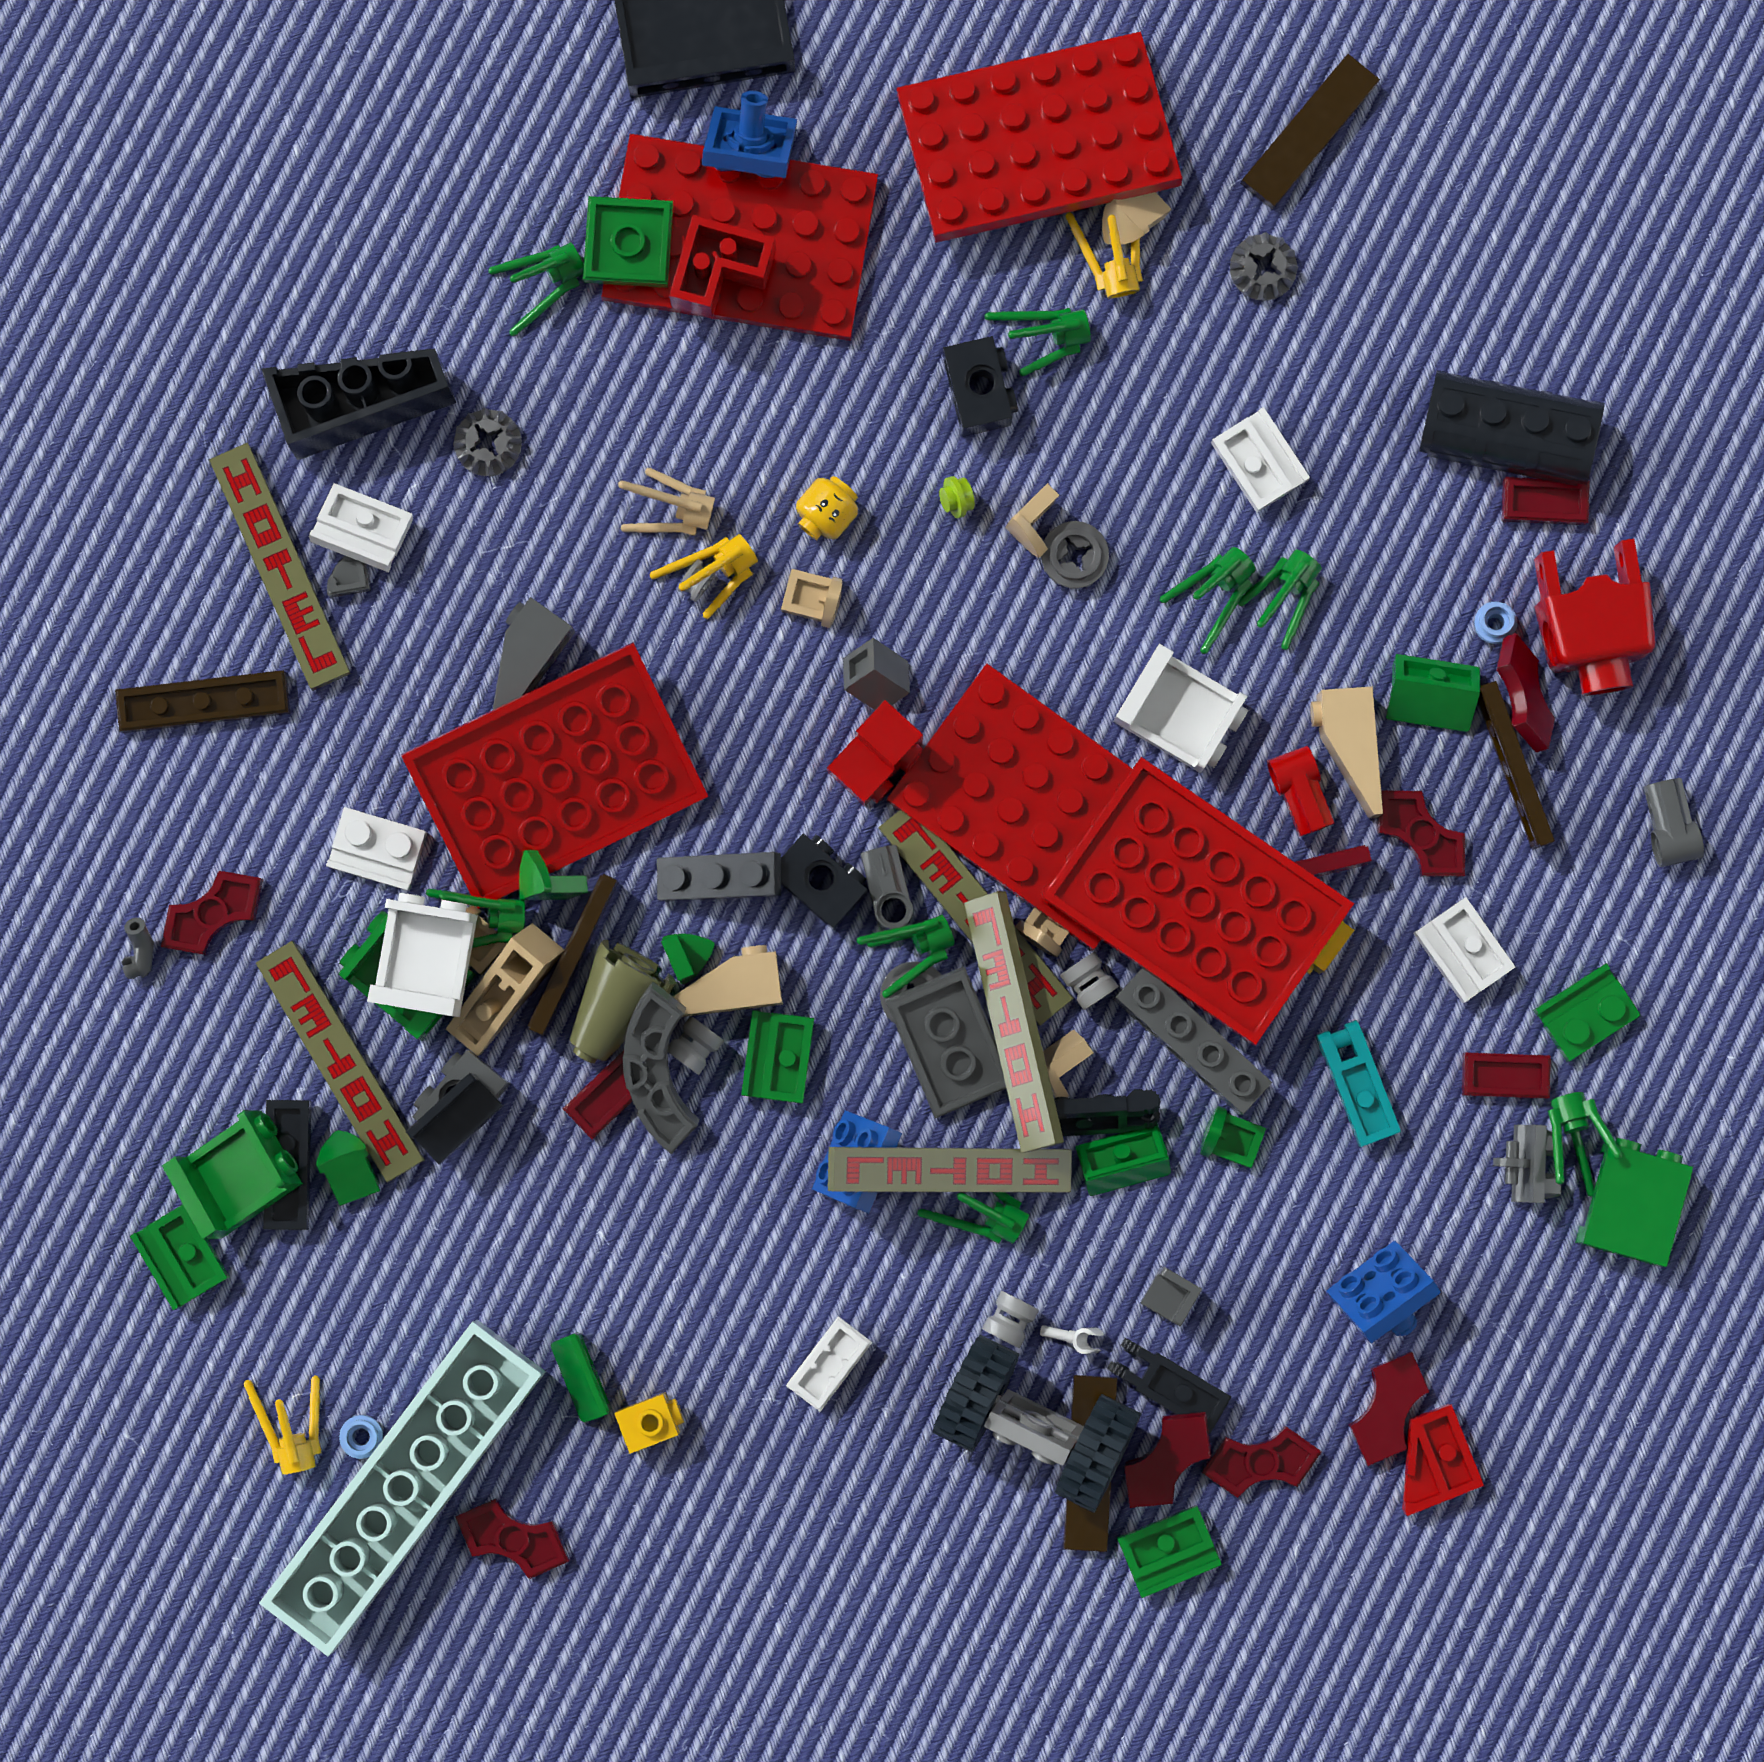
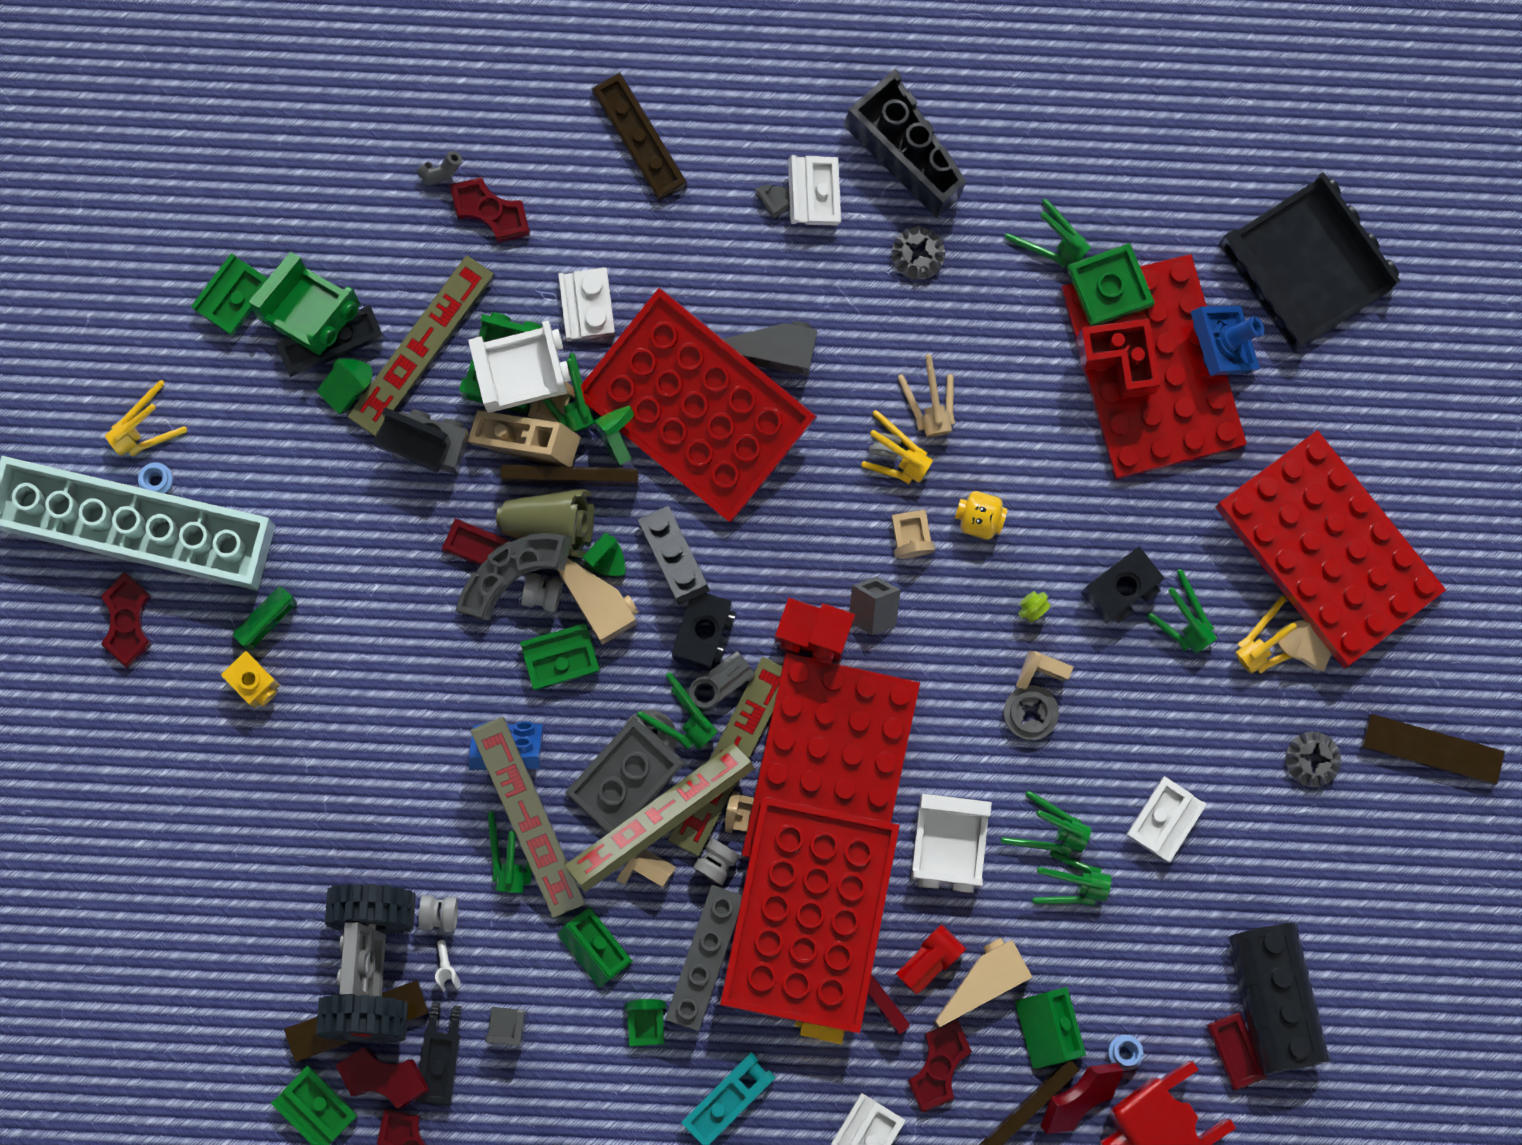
camera: 65 degrees right, 5 degrees down
(280, 566) = (760, 147): olive tile -> none
(829, 1363) = (349, 793): white plate -> none
(1108, 1113) = (622, 918): black hinge -> none

